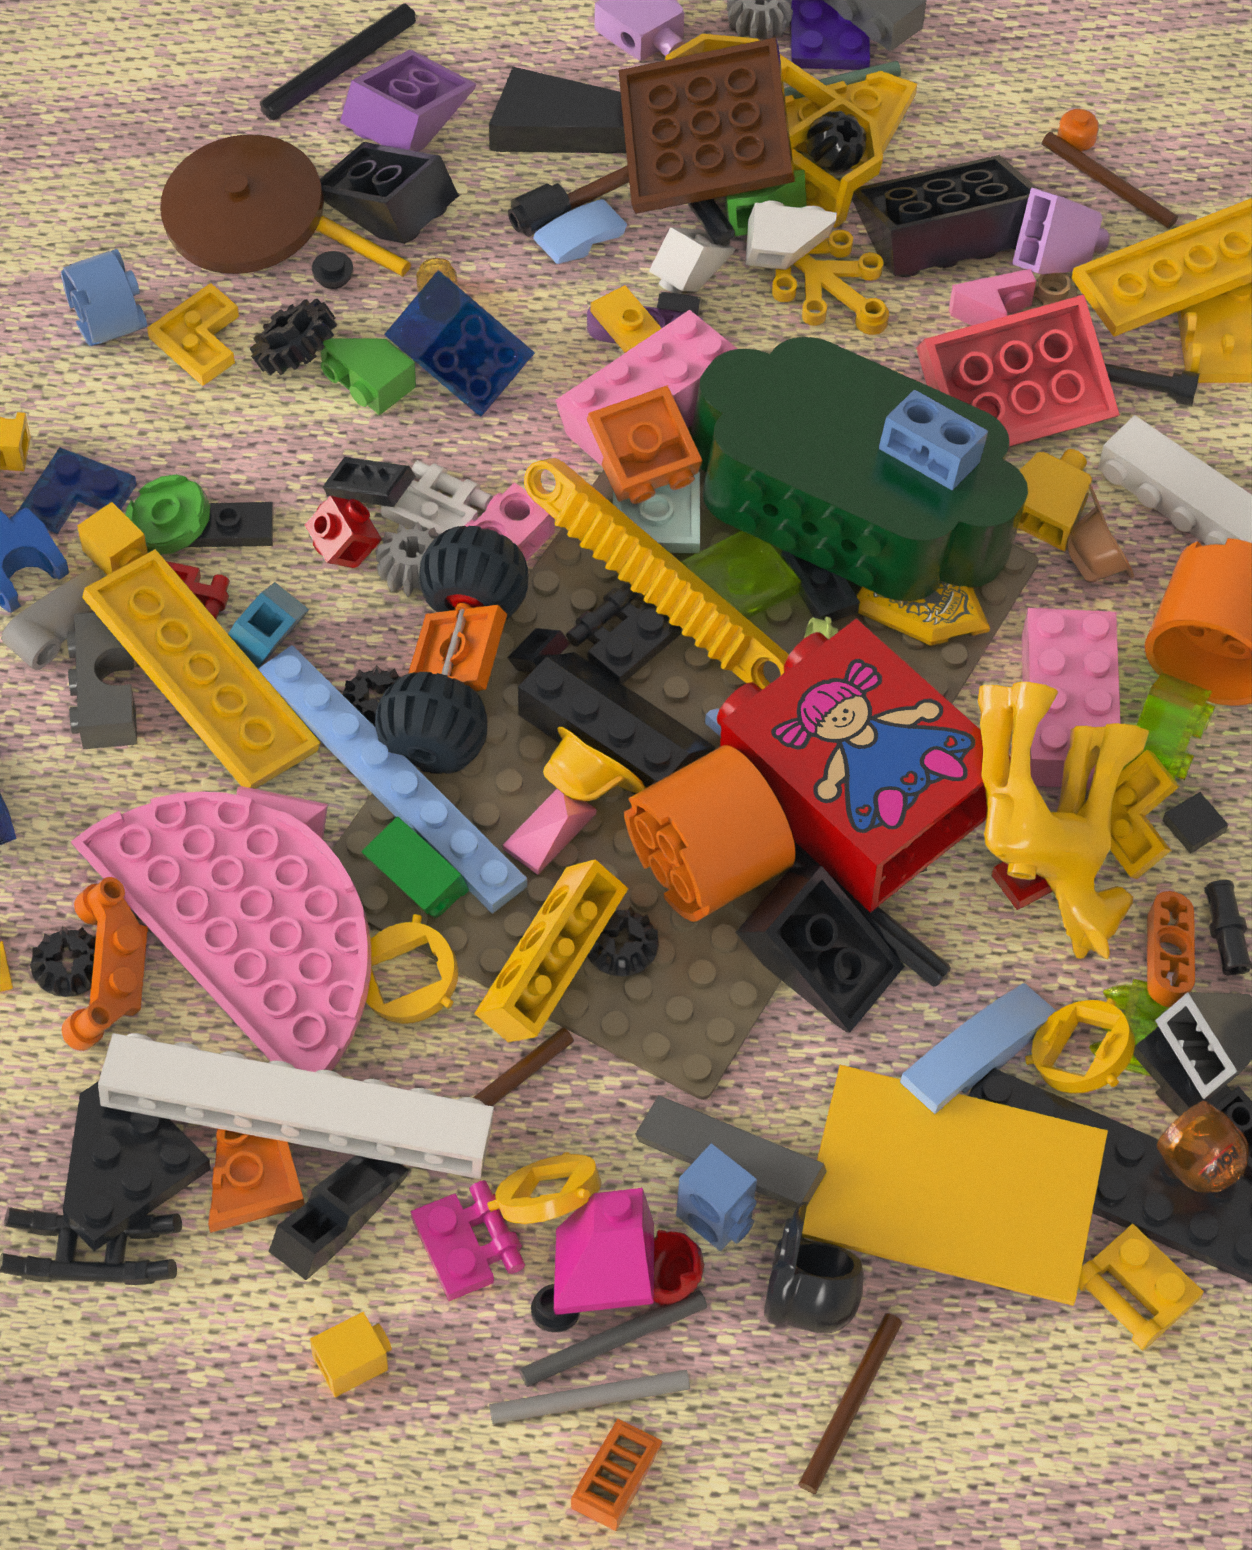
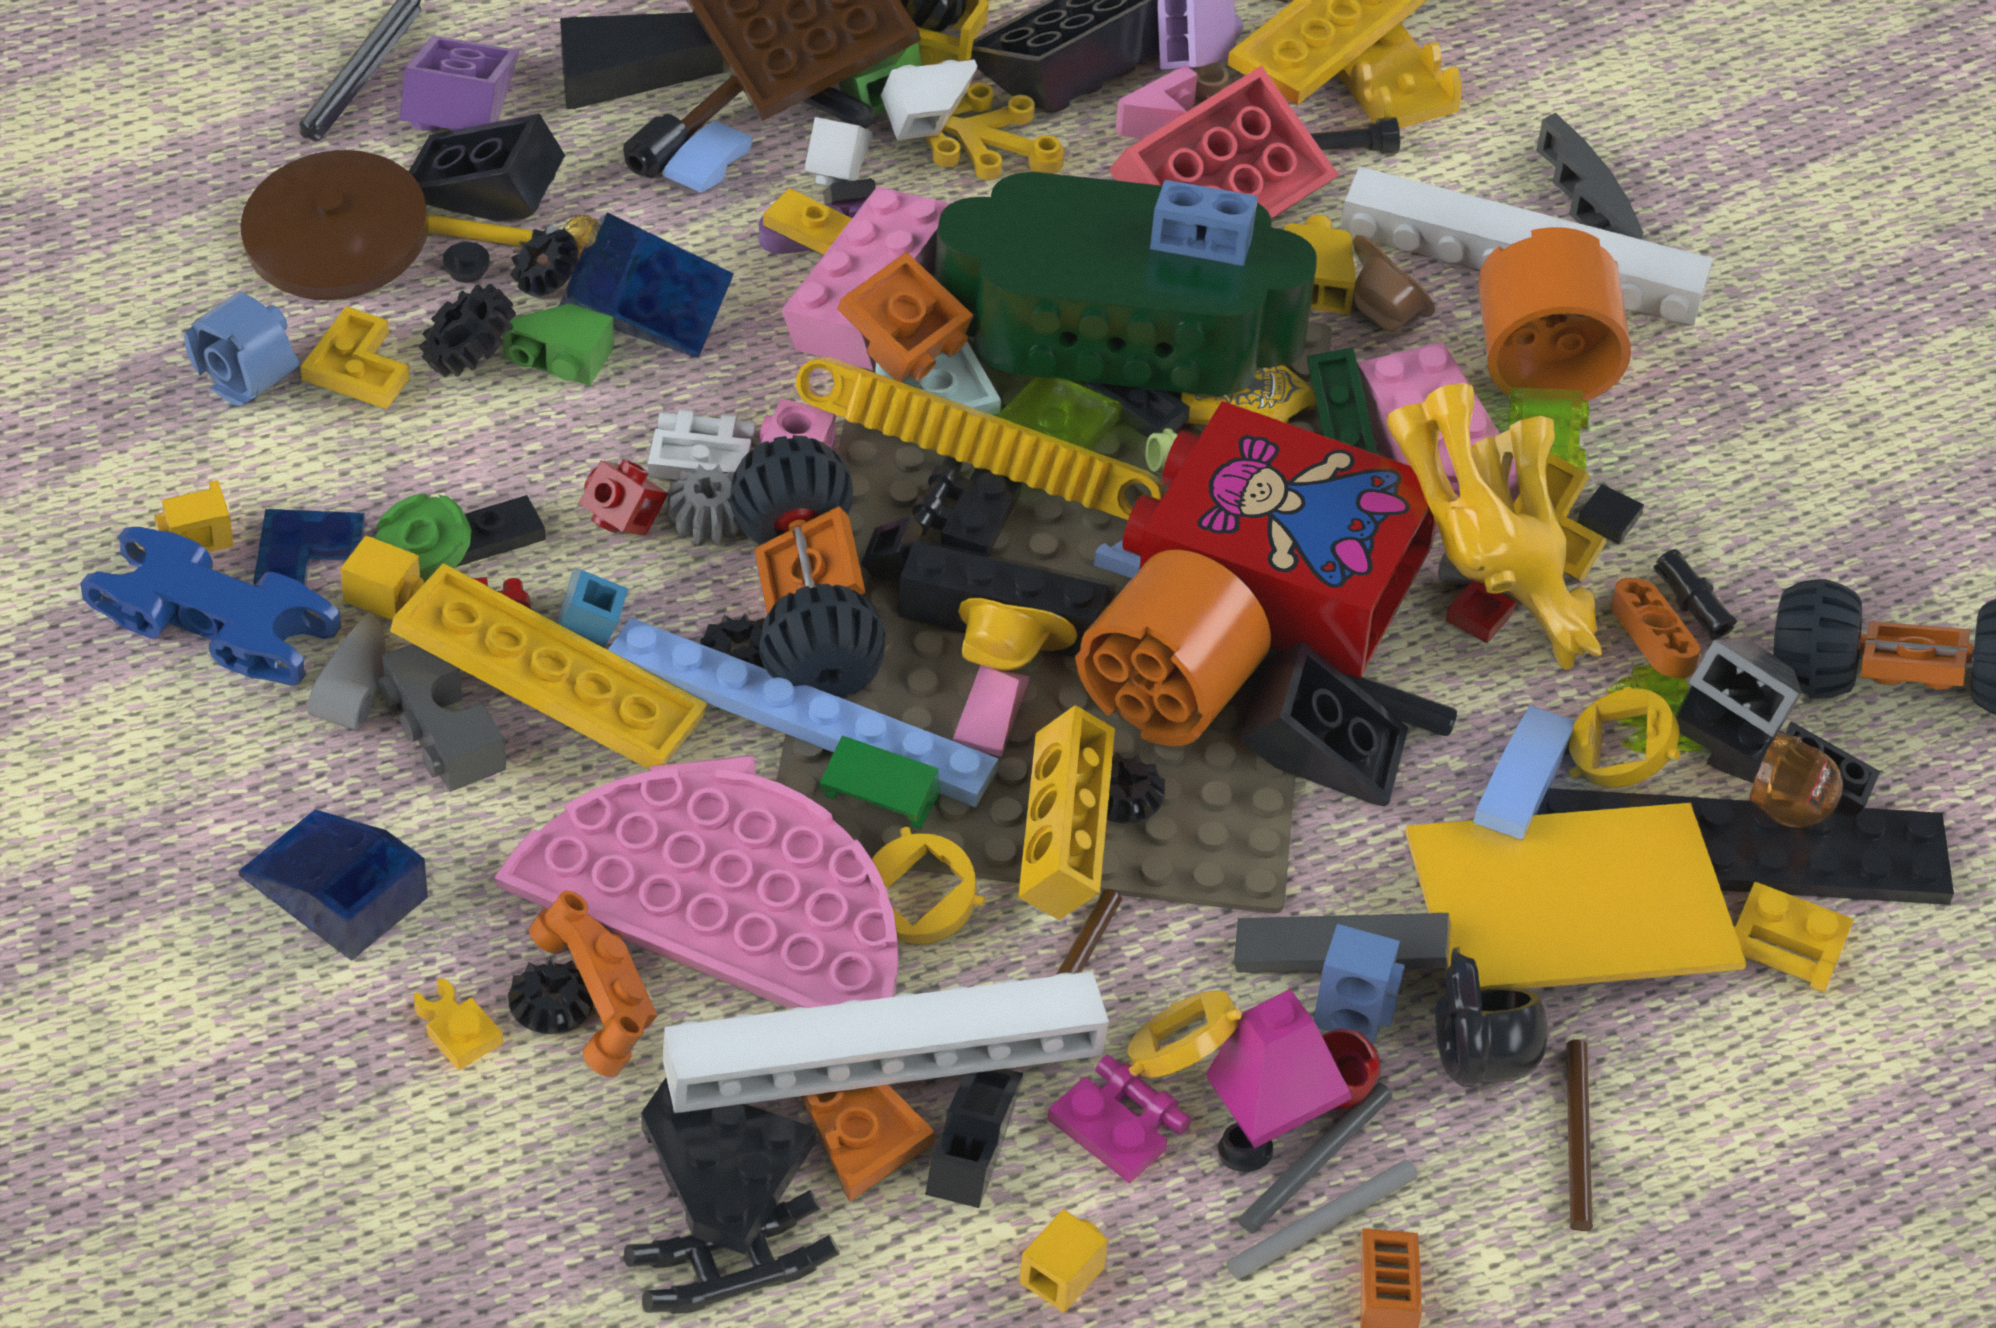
camera: 25 degrees left, 10 degrees down
(369, 481) = (635, 440): black plate -> none
(405, 284) = (561, 253): none -> black gear
(994, 645) = (1341, 398): none -> dark green plate

